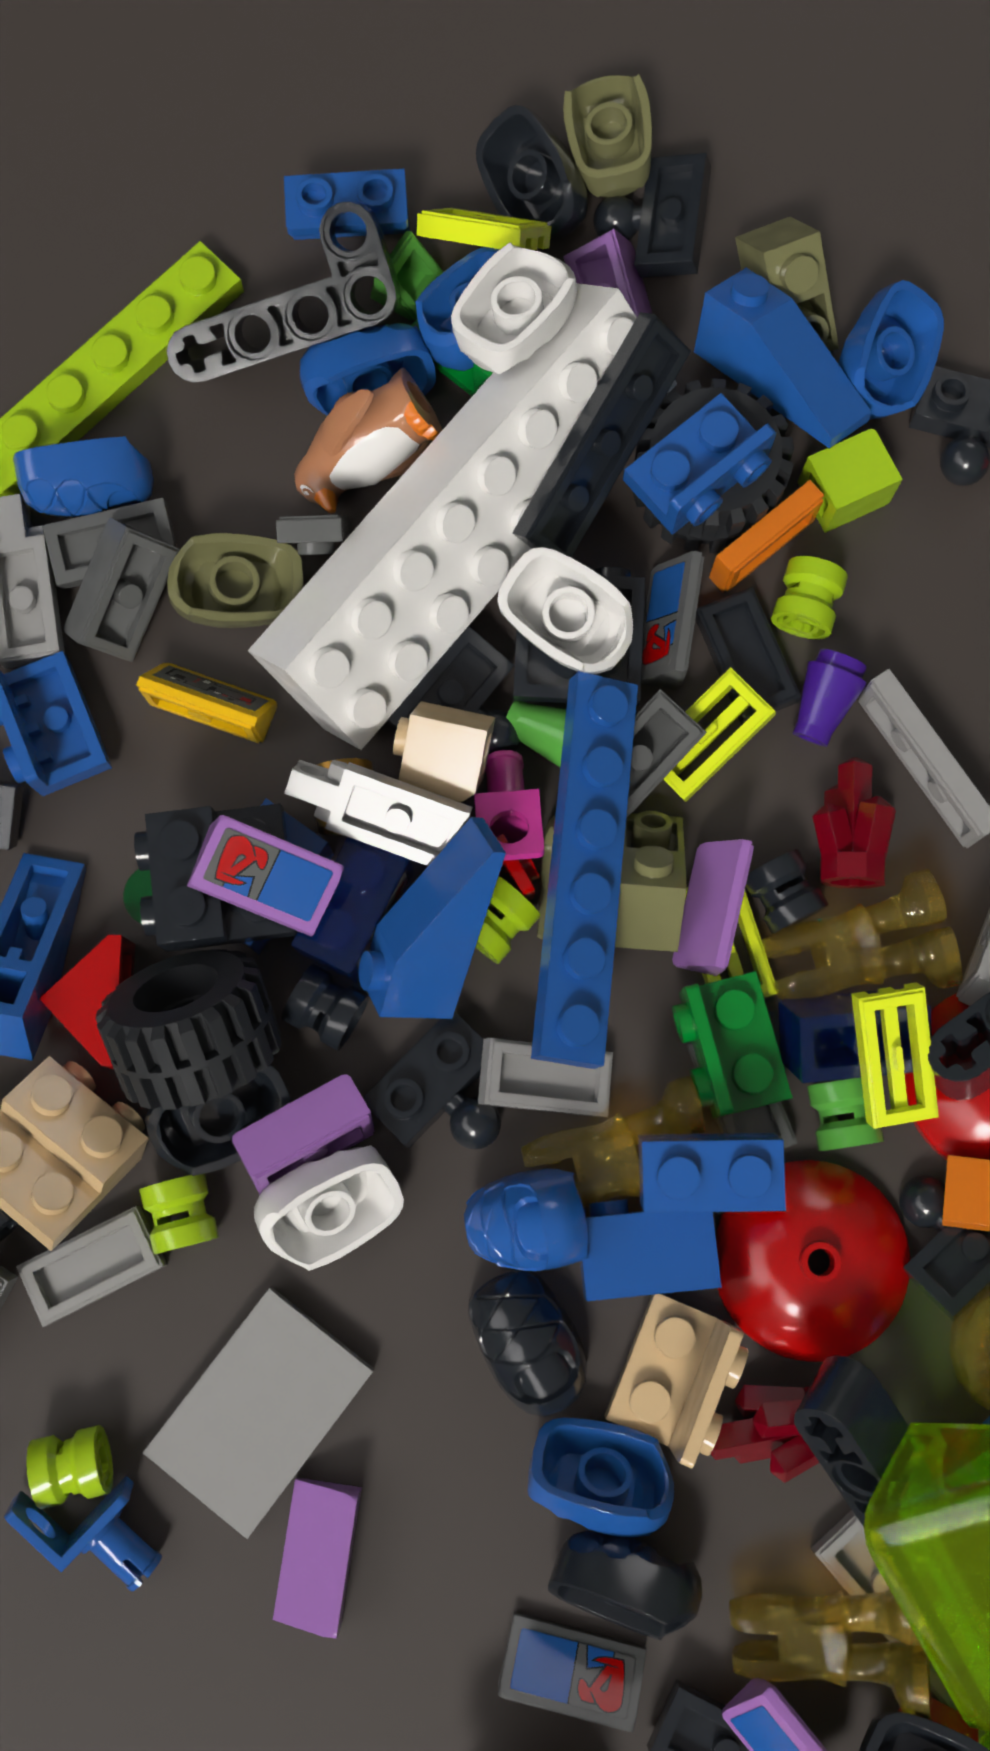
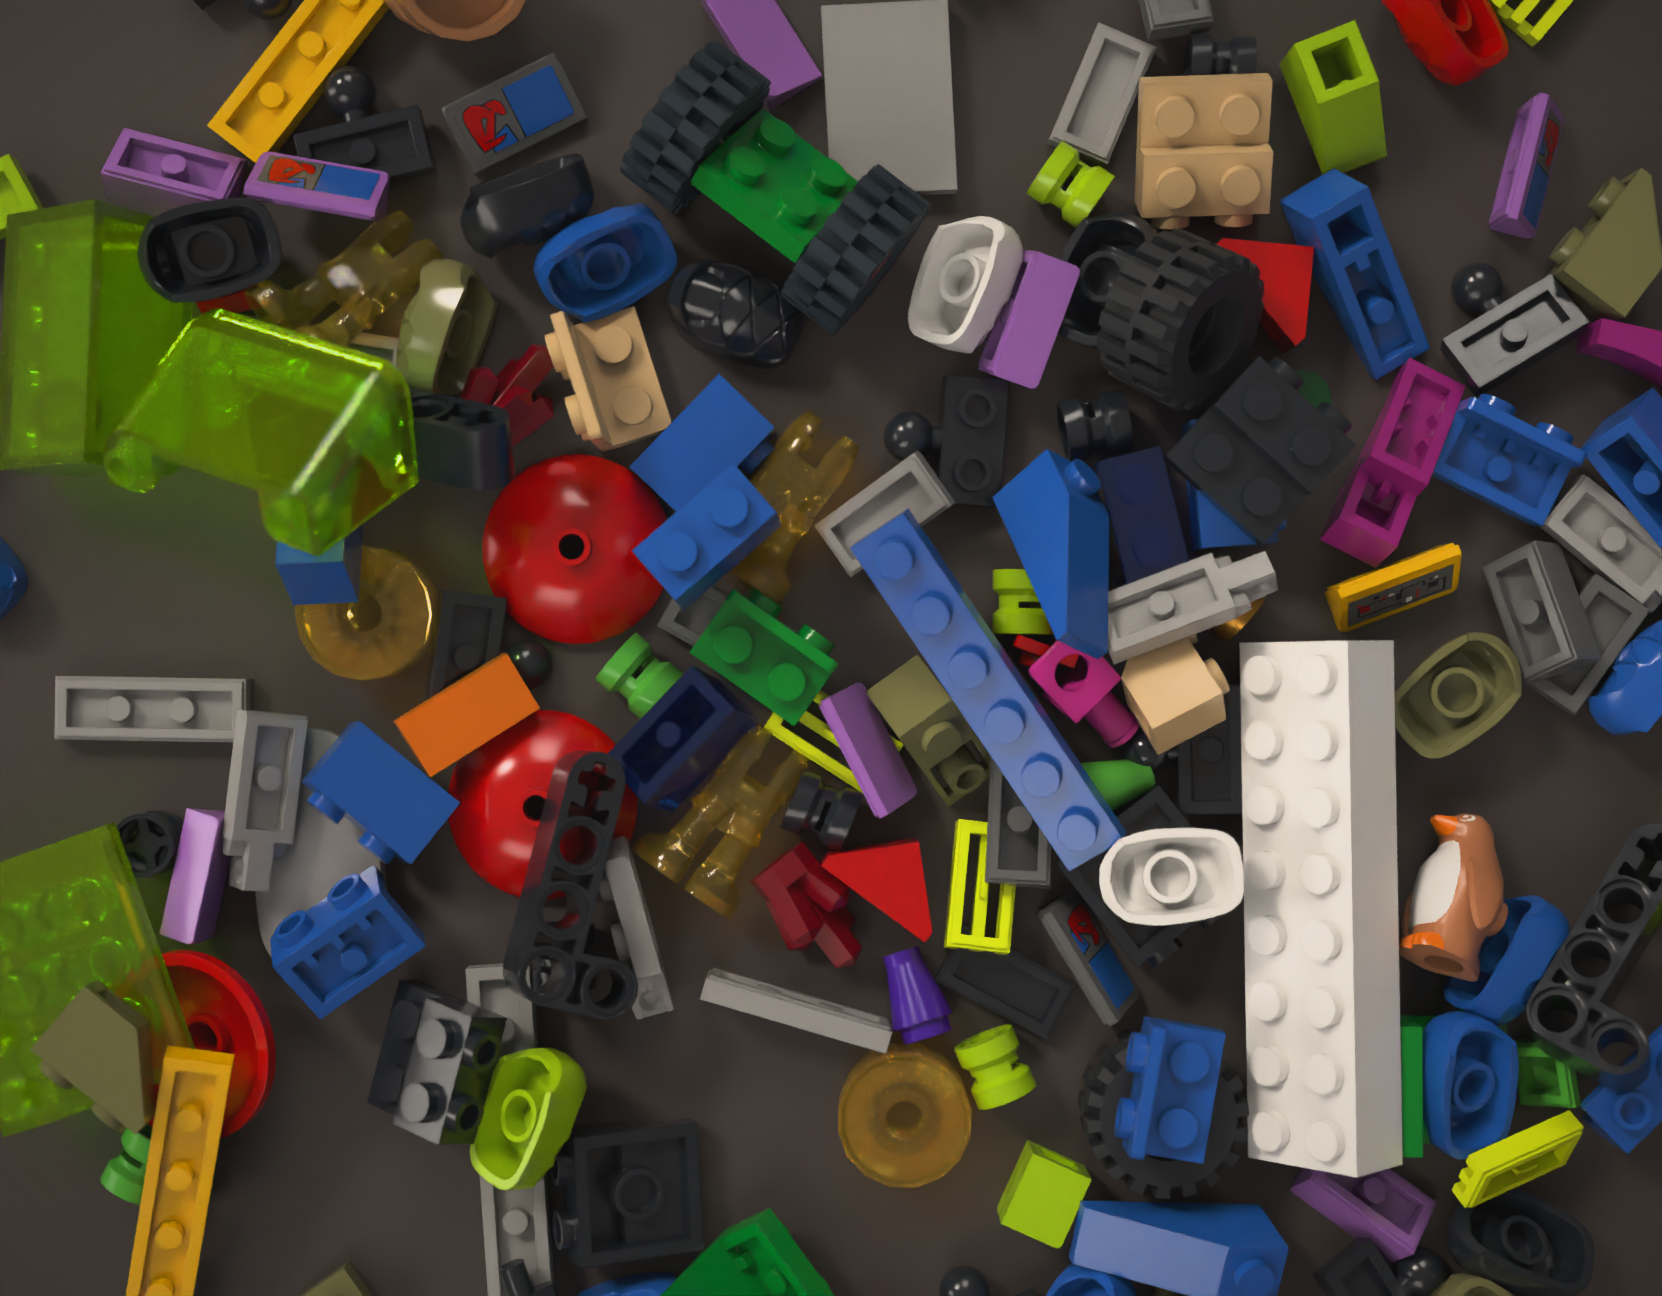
camera: 140 degrees right, 10 degrees up
(126, 785) = (1393, 464): none -> magenta slope
(265, 875) = (1223, 474): slope -> none
(313, 533) = (1429, 785): dark grey plate -> none
(427, 1496) = (722, 143): none -> black plate
(513, 307) = (1427, 1091): white piece -> none
(528, 1221) = (810, 394): blue piece -> none
(603, 437) = (1264, 1048): black tile -> none
(766, 537) = (1069, 1089): orange tile -> none
(778, 800) = (889, 878): none -> red slope
(780, 1535) = (445, 327): none -> olive piece
(887, 1001) = (678, 776): neon yellow tile -> none
(927, 588) = (896, 1153): none -> clear yellow wheel

